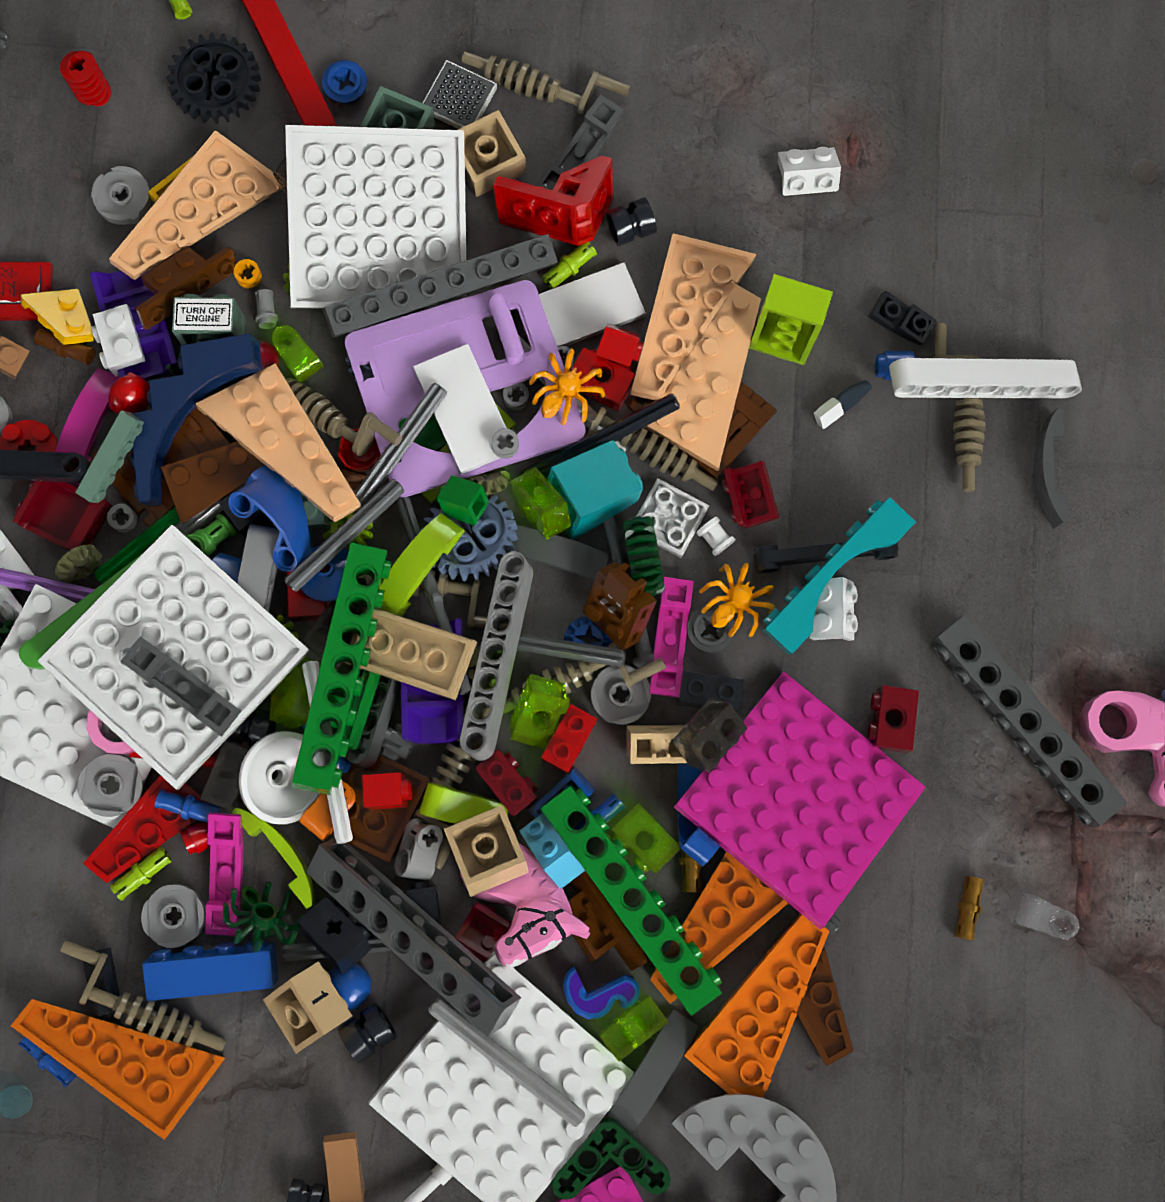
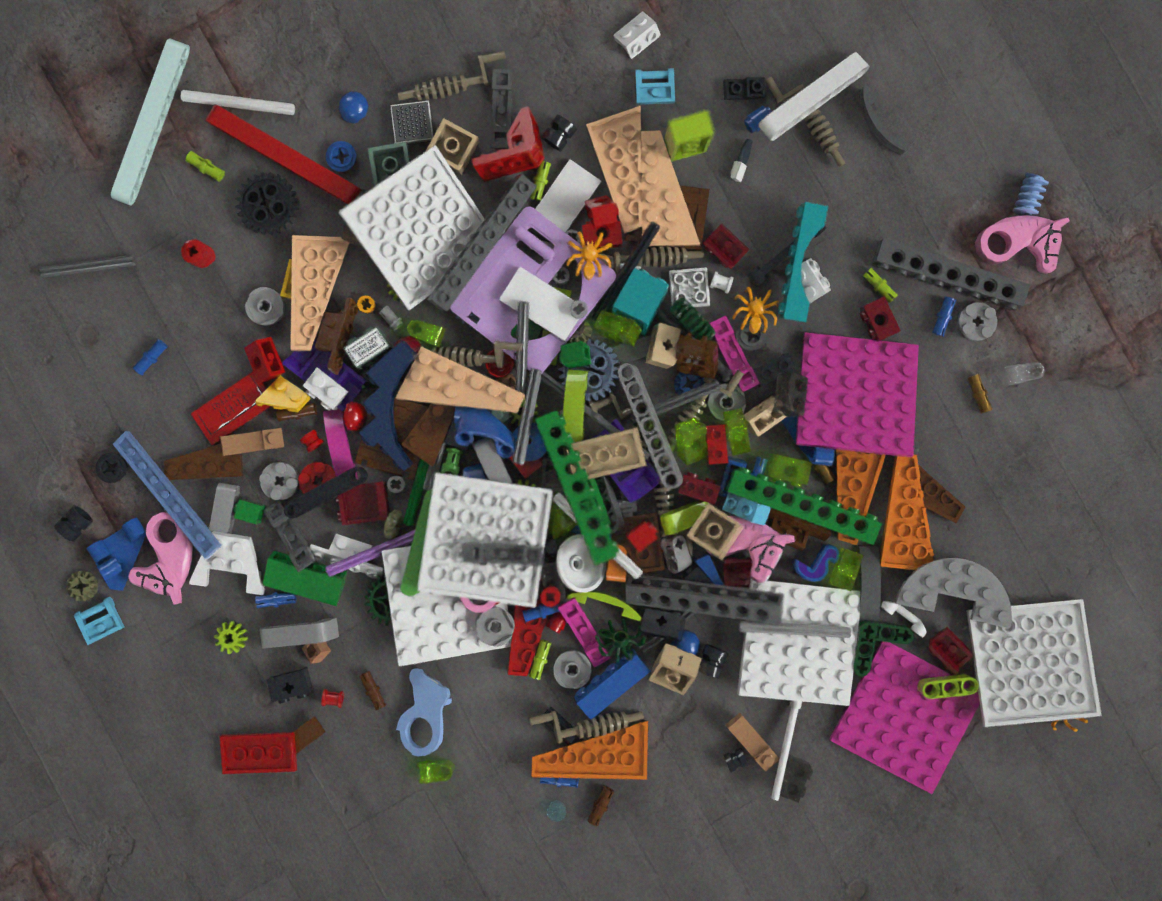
camera: 25 degrees left, 10 degrees up
(56, 393) = (311, 441): none -> red wheel
(71, 255) = (264, 359): none -> red brick
(77, 1135) = (600, 805): none -> reddish brown pin
(110, 457) = (372, 458): sand green piece -> none
(215, 790) = (552, 593): none -> red wheel
(400, 35) = (353, 107): none -> blue hair
(448, 901) = (707, 566): none -> blue slope
(570, 572) = (656, 352): none -> tan brick
(606, 739) = (736, 431): none -> clear neon green brick
(681, 1178) = (917, 626): none -> white bar
(786, 251) = (655, 92): none -> medium azure plate
(923, 675) = (880, 285): none -> lime pin
(984, 771) = (944, 316): none -> blue pin
(1042, 807) = (985, 329): none -> light grey plate

